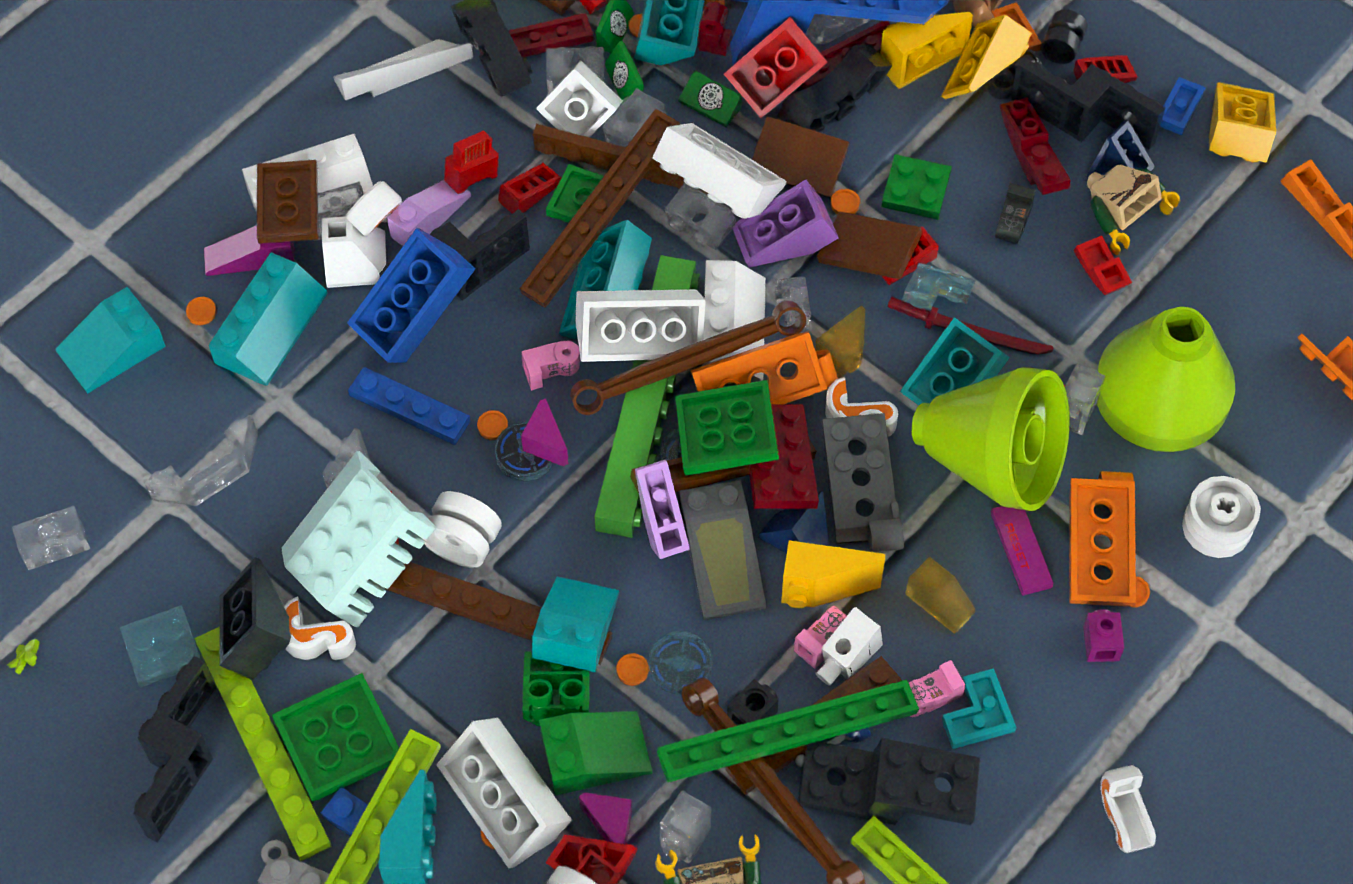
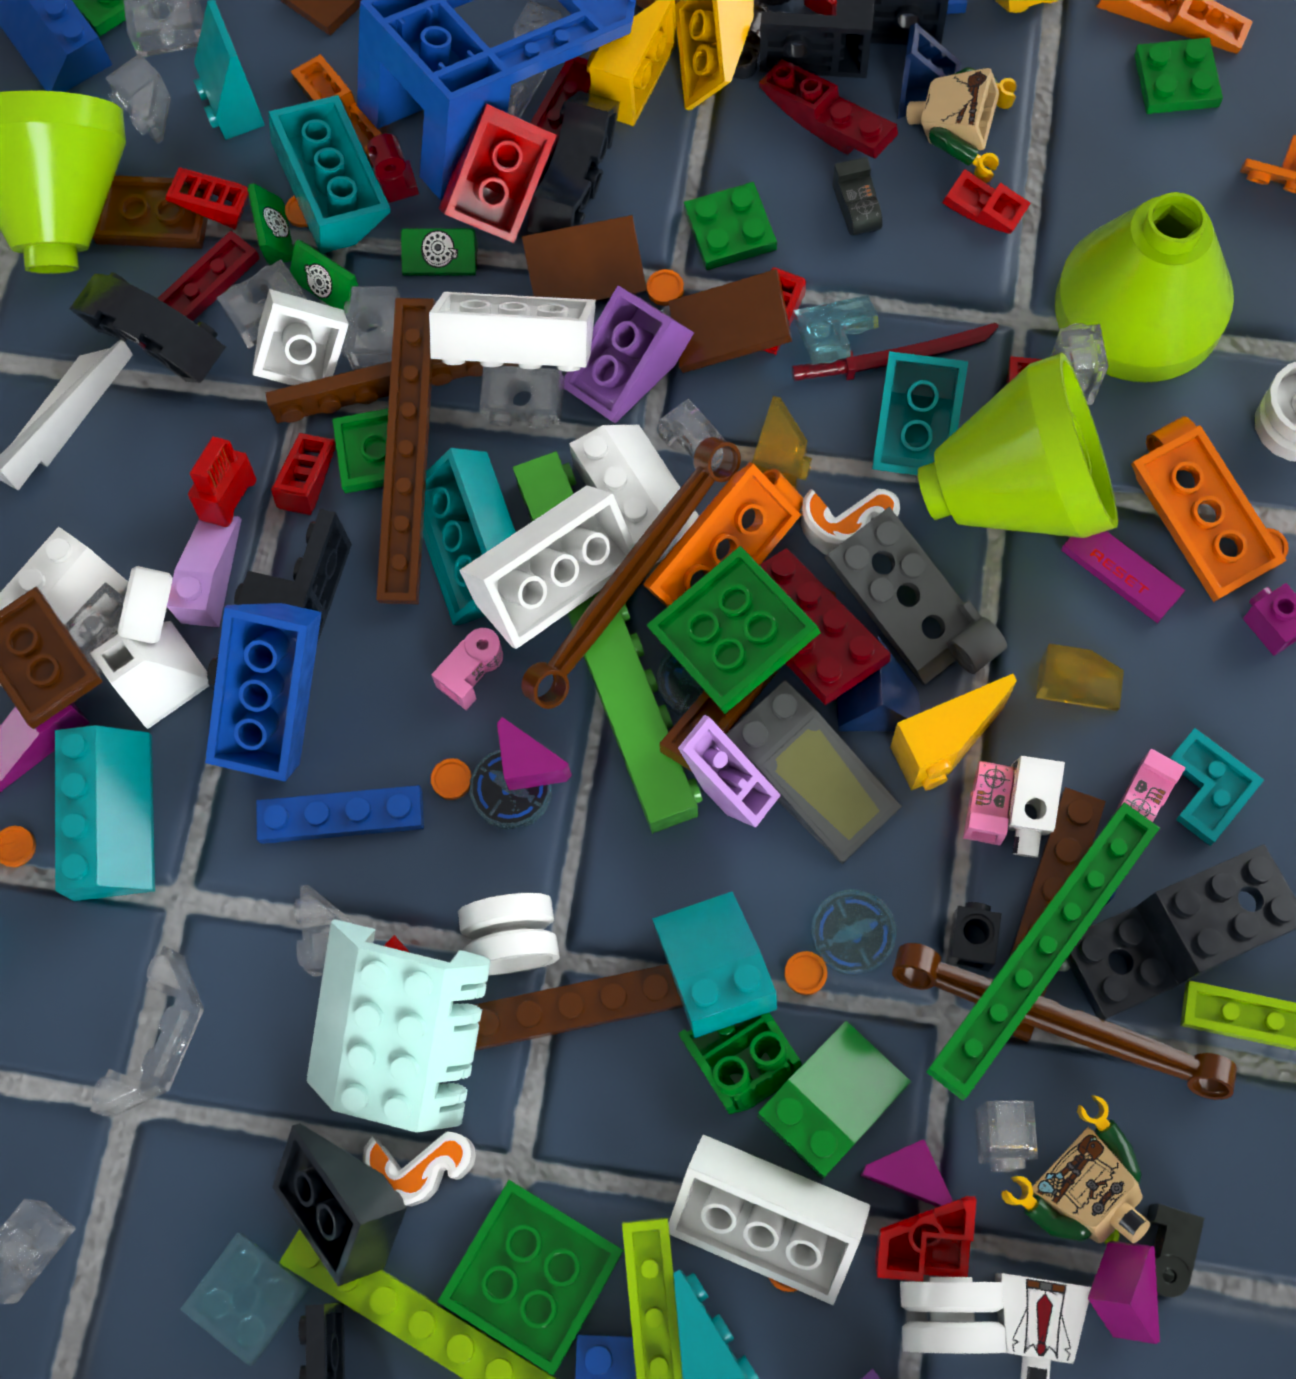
camera: 25 degrees left, 10 degrees up
(1302, 256) = (1178, 75): none -> green plate

